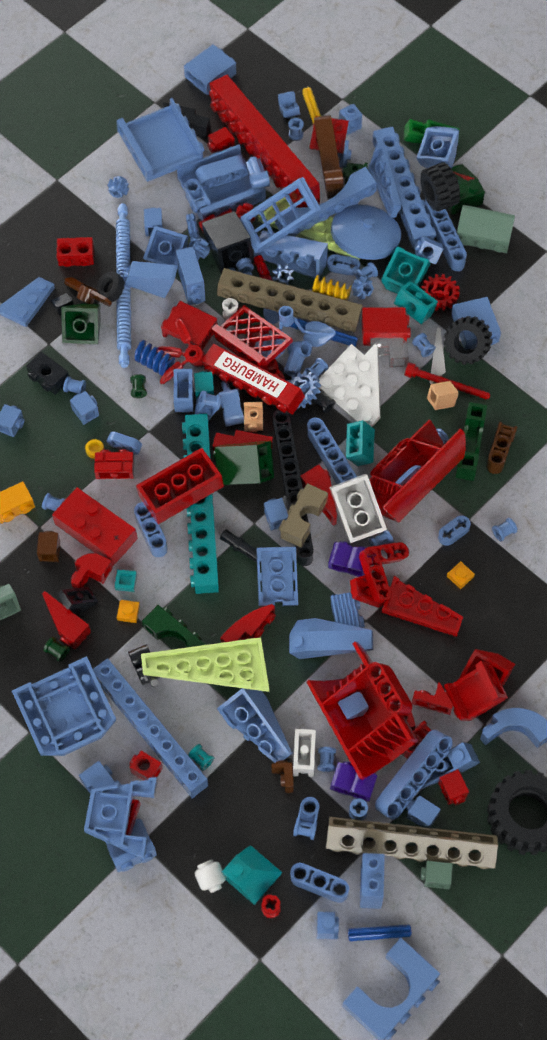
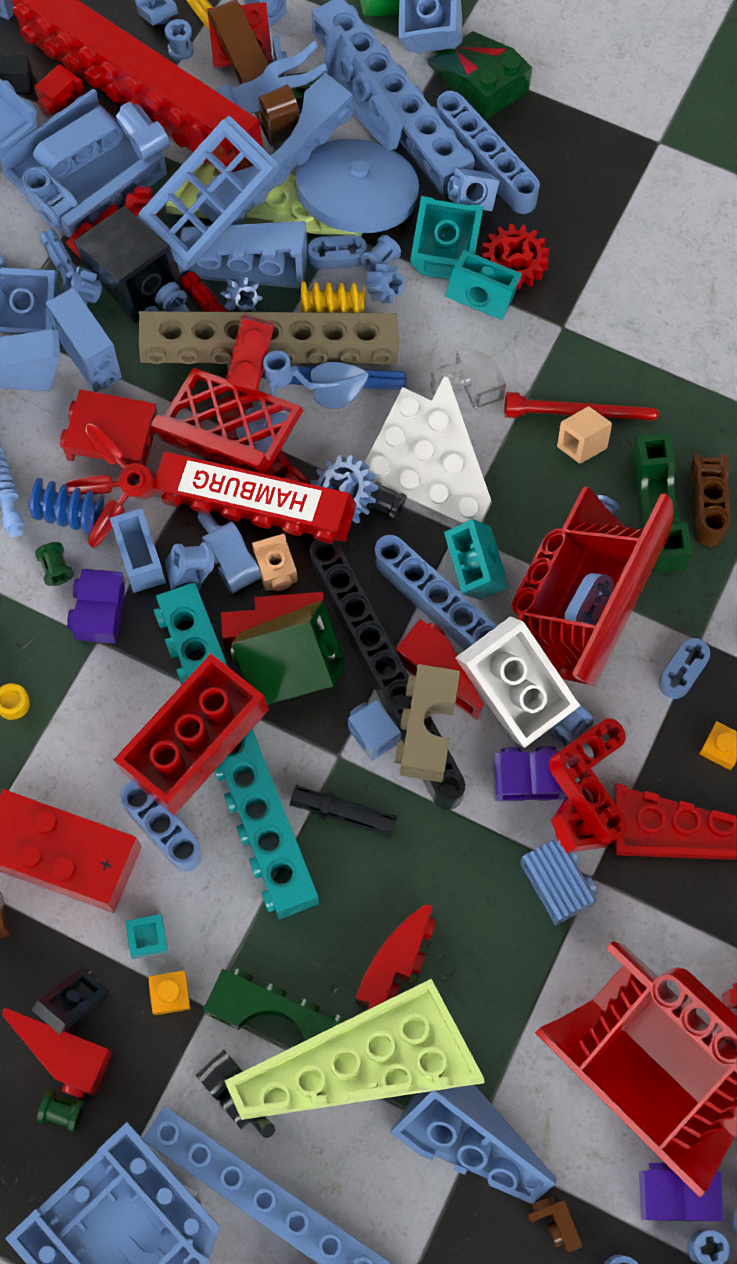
camera: 20 degrees left, 5 degrees up
(91, 566) = (74, 928): red brick -> none
(114, 464) = (56, 722): red brick -> none
(122, 441) = (62, 676): medium blue beam -> none
(154, 413) = (97, 606): none -> dark purple brick
(203, 382) = (169, 528): teal brick -> none
(206, 762) = (394, 1238): teal bush -> none
(229, 307) = (166, 373): white bush -> none
(275, 300) = (249, 352): none -> red brick
(277, 576) = (415, 847): medium blue piece -> none
(297, 352) = (314, 435): medium blue piece -> none
(304, 752) = (578, 1171): white brick -> none
(317, 169) = (247, 94): none -> medium blue flag
(318, 367) = (356, 443): medium blue bush -> none
(326, 638) = (540, 938): medium blue wedge -> none
(326, 759) = (618, 1167): medium blue bush -> none
(354, 705) = (634, 1052): medium blue slope -> none
(384, 323) = (443, 336): red panel -> none
(422, 339) = (514, 346): medium blue bush -> none
(438, 363) = (552, 380): white sticker -> none
(440, 186) = (462, 75): black tyre -> none
(454, 347) = (603, 353): black tyre -> none
(479, 308) = (593, 294): medium blue brick -> none
(485, 228) = (554, 128): sand green slope -> none

